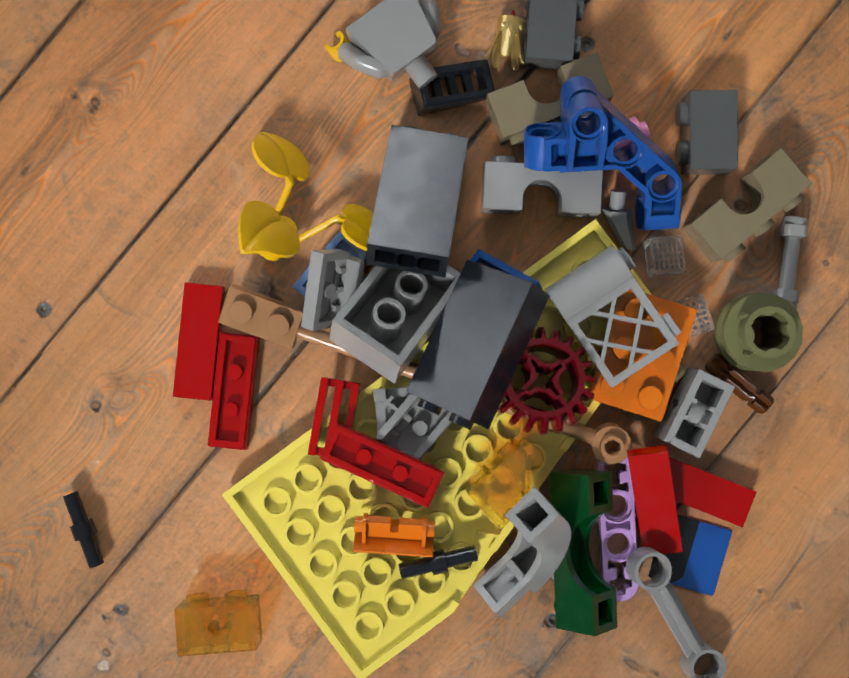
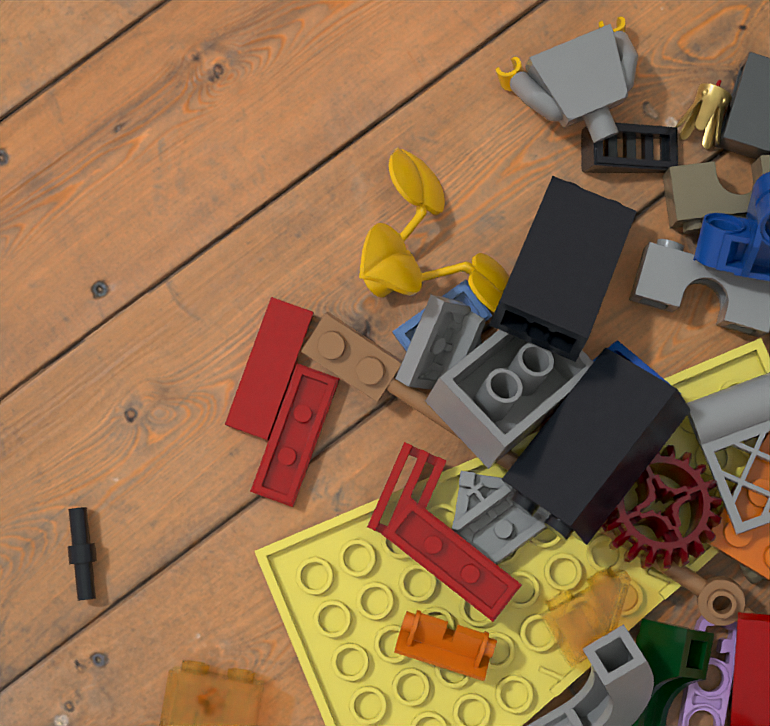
camera: 20 degrees right, 5 degrees down
(439, 562) = (488, 691): black bar -> none

